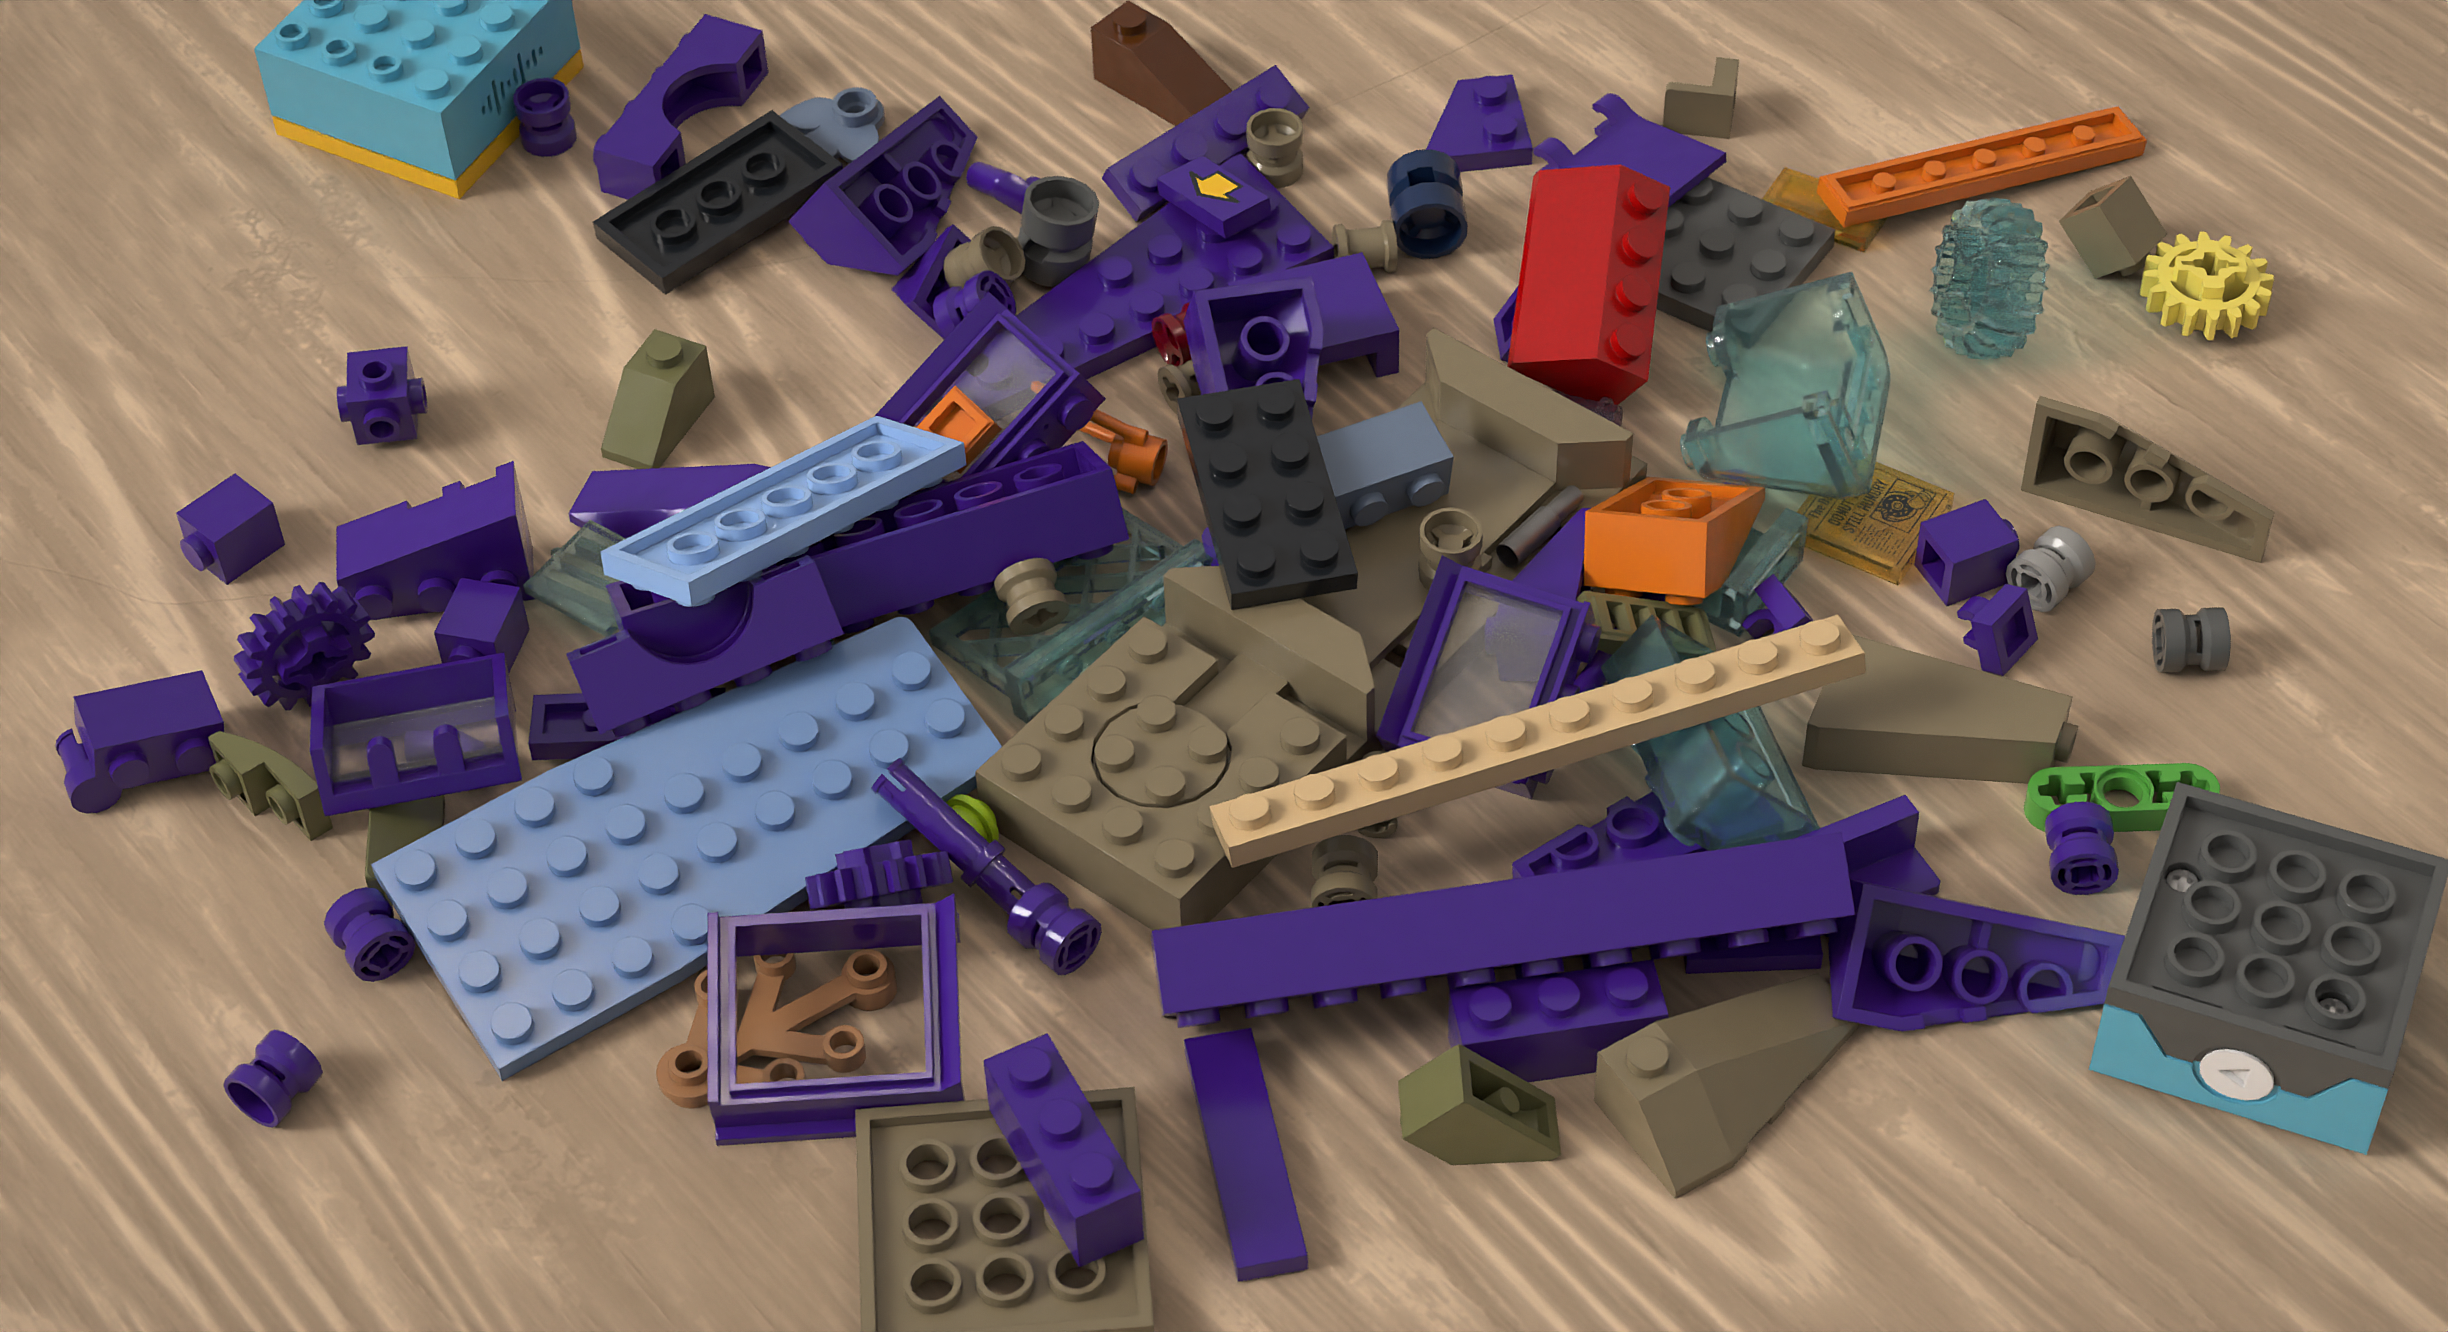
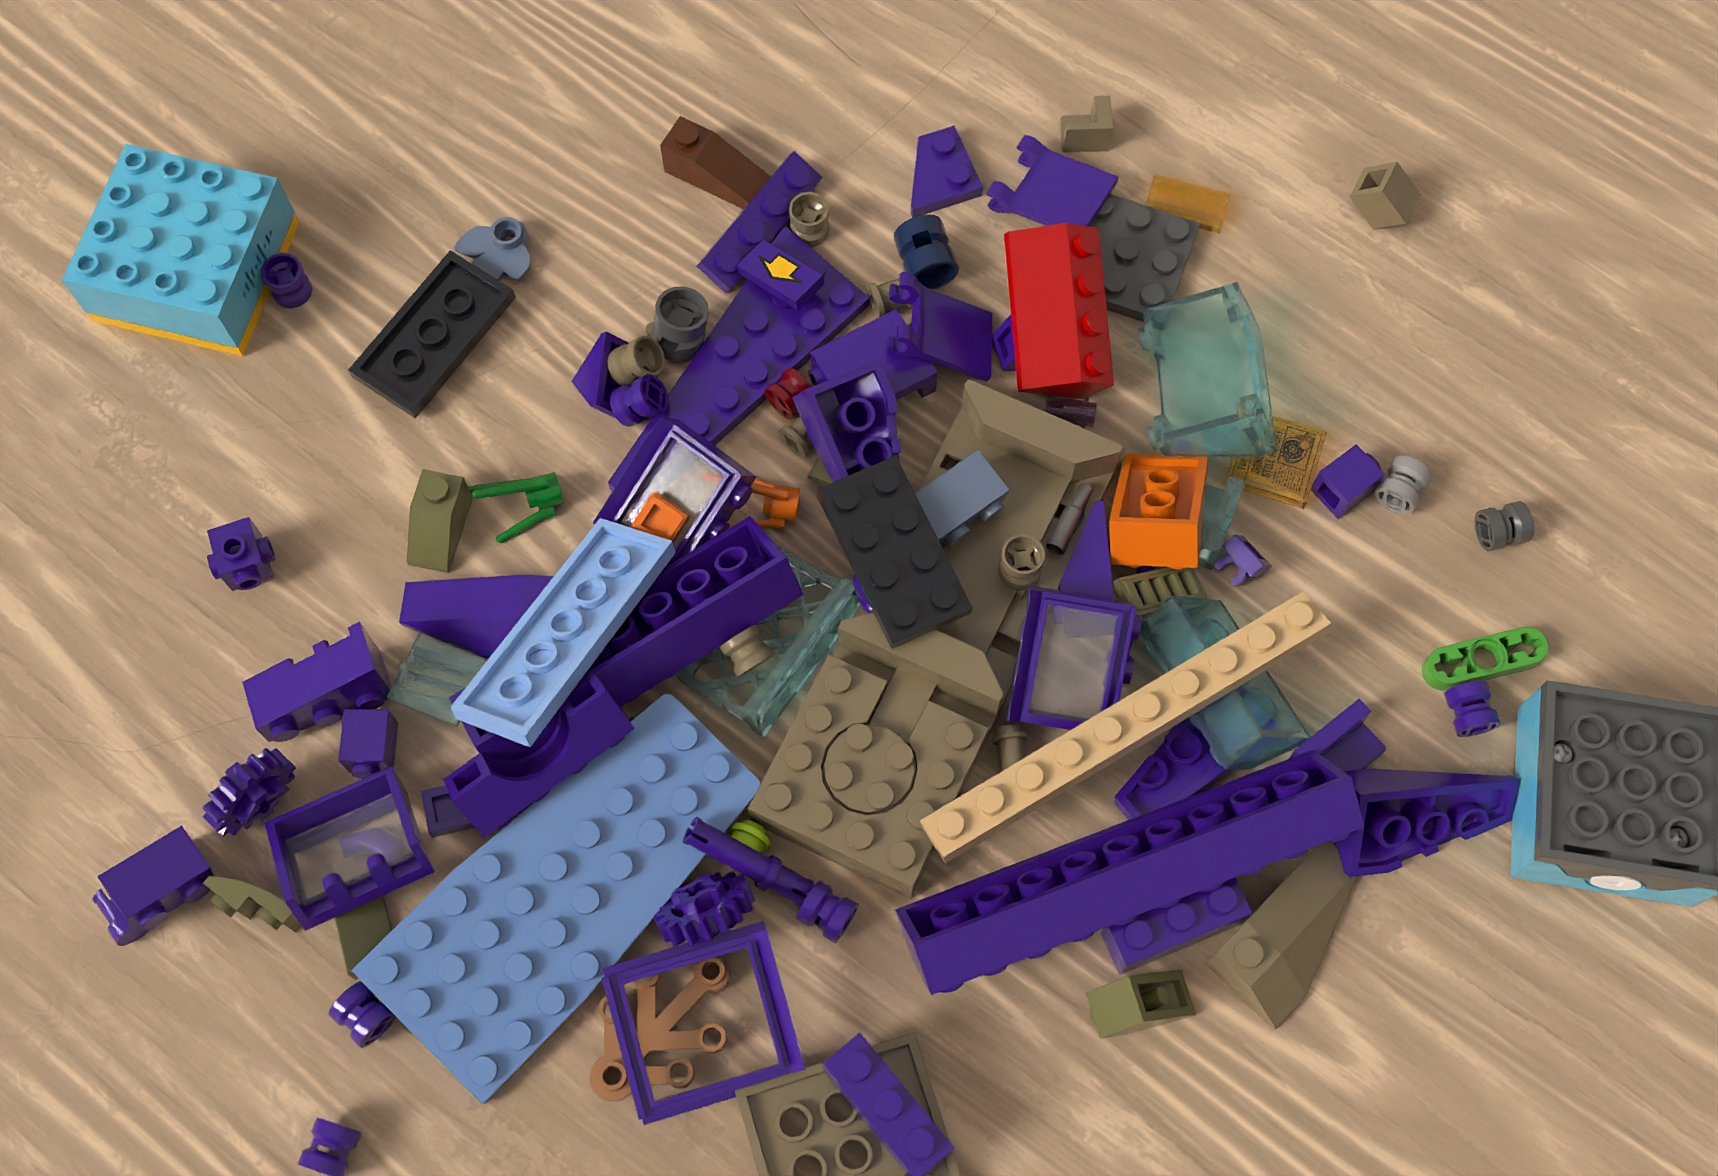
camera: 15 degrees left, 20 degrees up
(229, 529) = (162, 689): dark purple brick -> none
(709, 69) = (395, 214): dark purple arch -> none
(807, 392) = (540, 492): none -> green plant
(890, 199) = (553, 311): dark purple wedge -> none
(999, 184) = (621, 281): dark purple arm -> none
(1245, 1155) = (998, 1066): dark purple tile -> none
(1343, 871) = (1012, 842): dark tan wheel -> none
(1418, 283) = (942, 329): none -> dark purple flag
(1936, 721) = (1368, 621): dark tan slope -> none
(1980, 166) = (1282, 152): orange tile -> none
(1989, 278) = (1320, 260): clear light blue gear -> none
(2000, 628) = (1380, 540): dark purple tile -> none
(2125, 476) = (1428, 397): dark tan wedge -> none
(2206, 285) = (1451, 229): light yellow gear -> none

